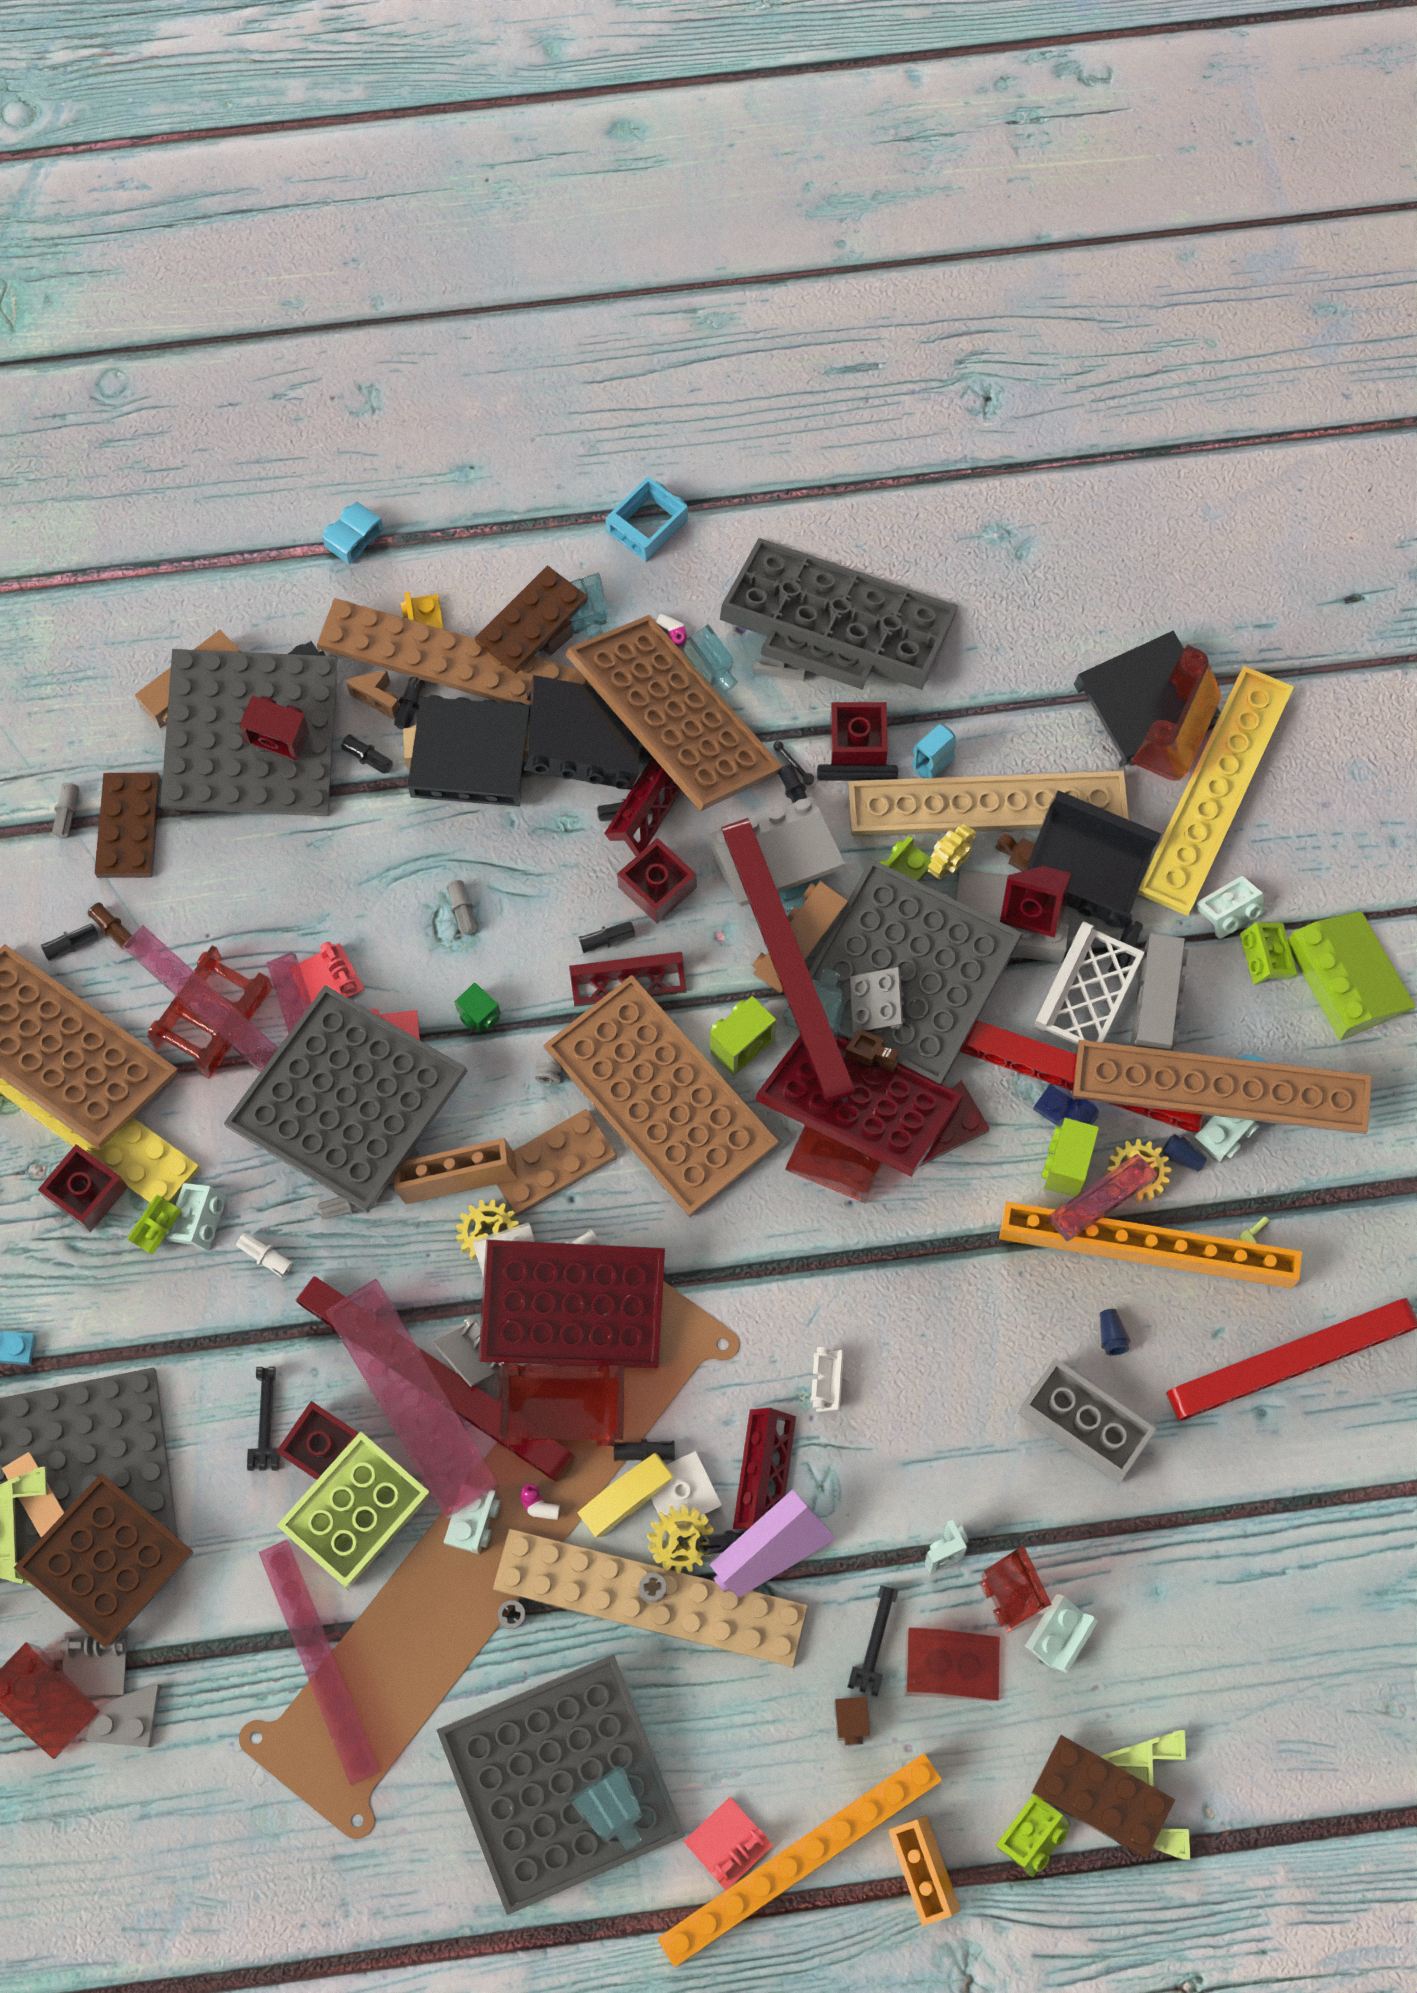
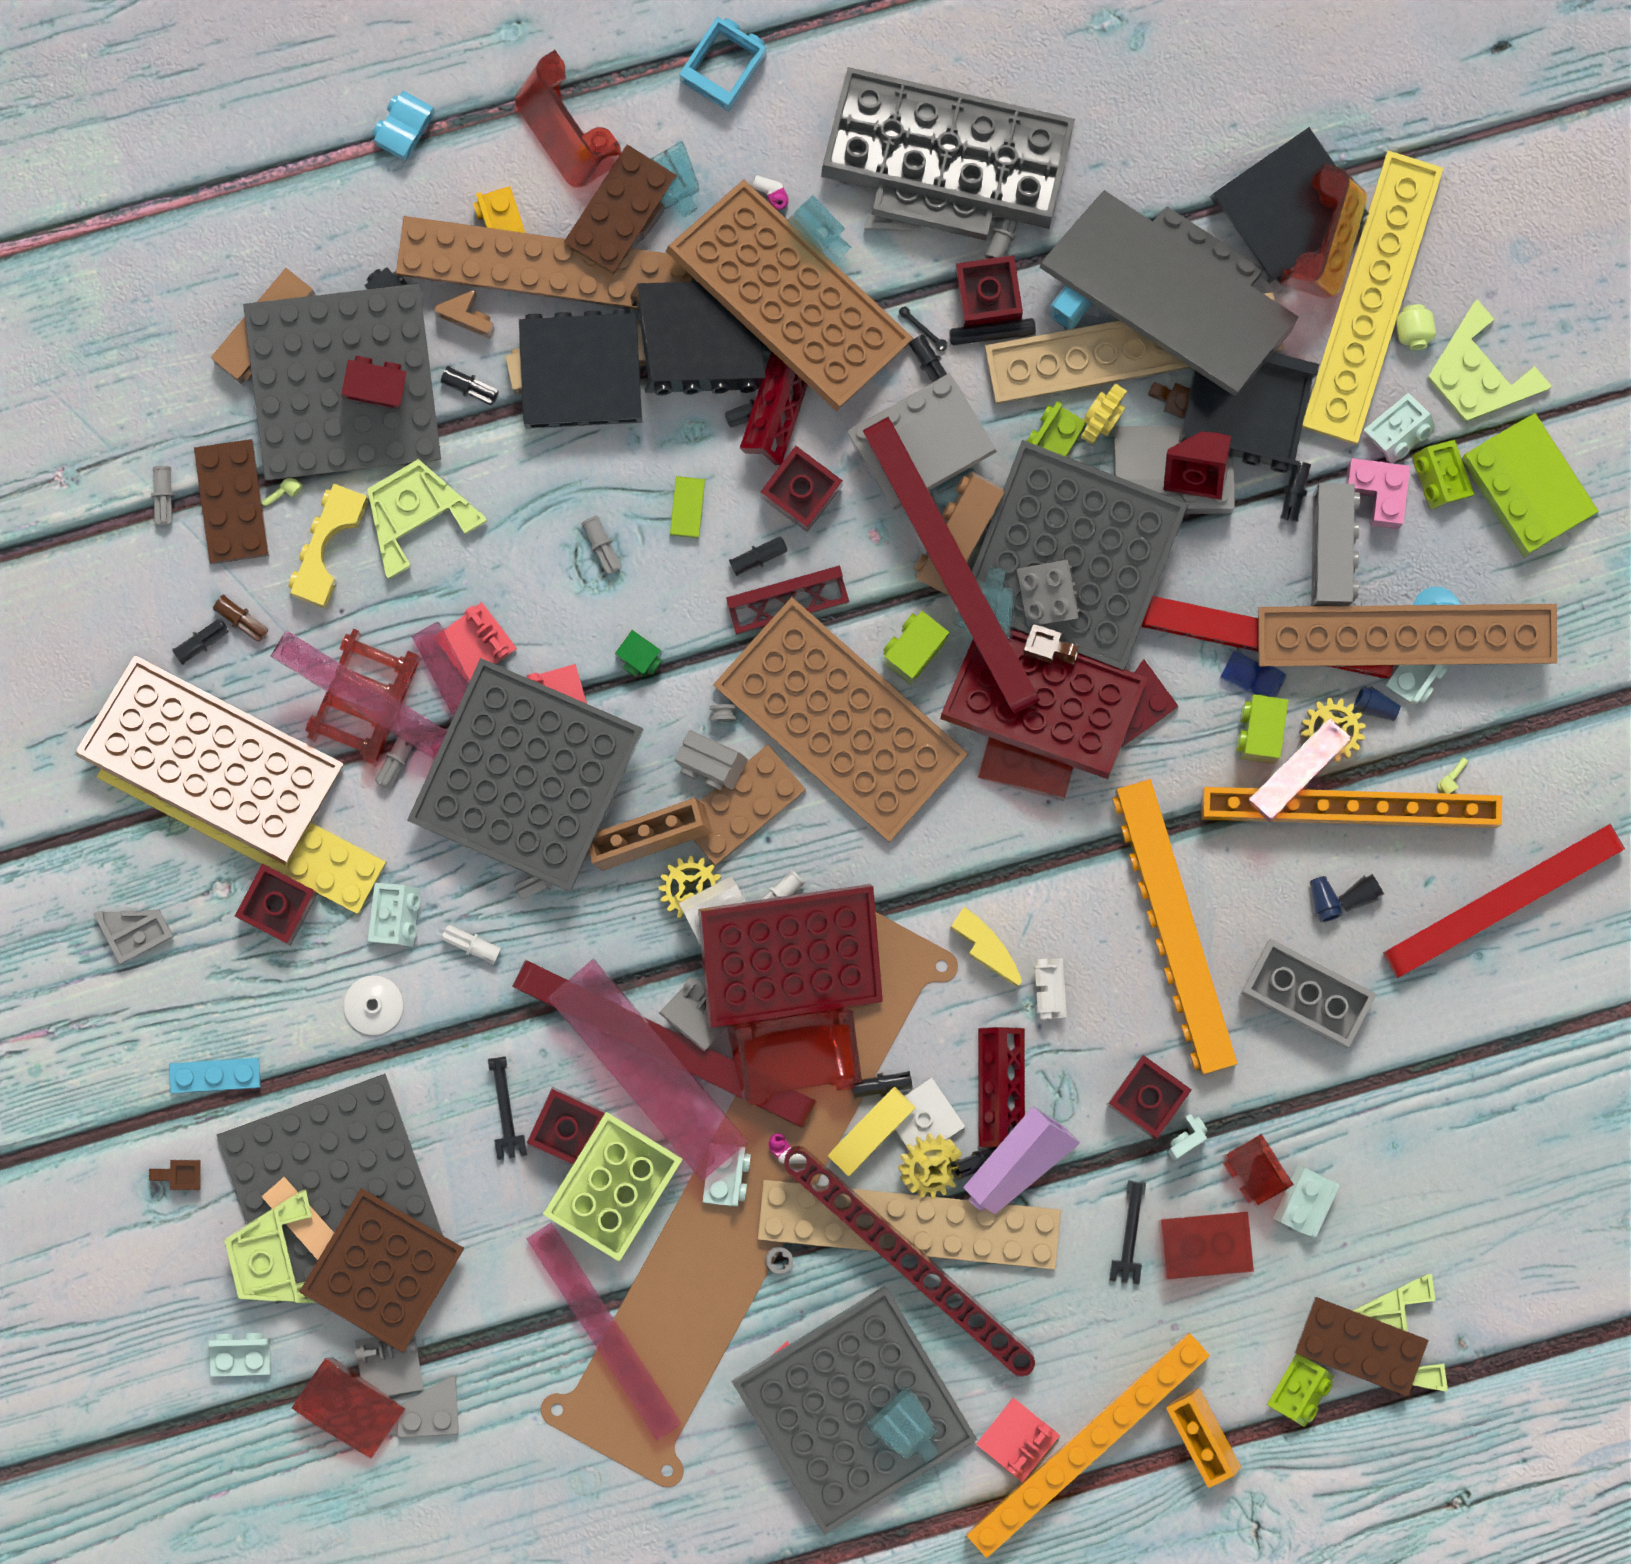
camera: 10 degrees left, 15 degrees up
(154, 1224) = (356, 931): lime hips -> none
(164, 1313) = (388, 1010): none -> white dish
(182, 817) = (289, 485): none -> yellowish green hand
(225, 845) = (341, 511): none -> light yellow arch
(226, 1074) = (393, 763): none -> light grey axle
(290, 845) = (409, 501): none -> yellowish green wing
(409, 703) = (503, 320): black axle -> none
(500, 566) = (576, 155): none -> clear red windscreen
(528, 1113) = (710, 760): none -> light grey brick
(548, 886) = (687, 507): none -> lime tile
(646, 1648) = (917, 1273): none -> dark red beam
(659, 1593) = (904, 1210): light grey bush -> none
(769, 1328) = (987, 946): none -> light yellow slope
(852, 1720) = (1118, 1311): reddish brown brick -> none
(880, 690) = (1002, 236): none -> light grey axle
(912, 1501) = (1149, 1097): none -> dark red brick
(961, 1340) = (1175, 927): none -> light orange brick
(1032, 748) = (1173, 288): none -> dark grey slope
(1070, 971) = (1238, 534): white fence -> none
(1151, 1331) = (1363, 892): none -> black cone
(1213, 953) = (1386, 485): none -> bright pink brick
(1255, 818) = (1416, 326): none -> yellowish green head
(1303, 874) = (1470, 378): none -> yellowish green wing

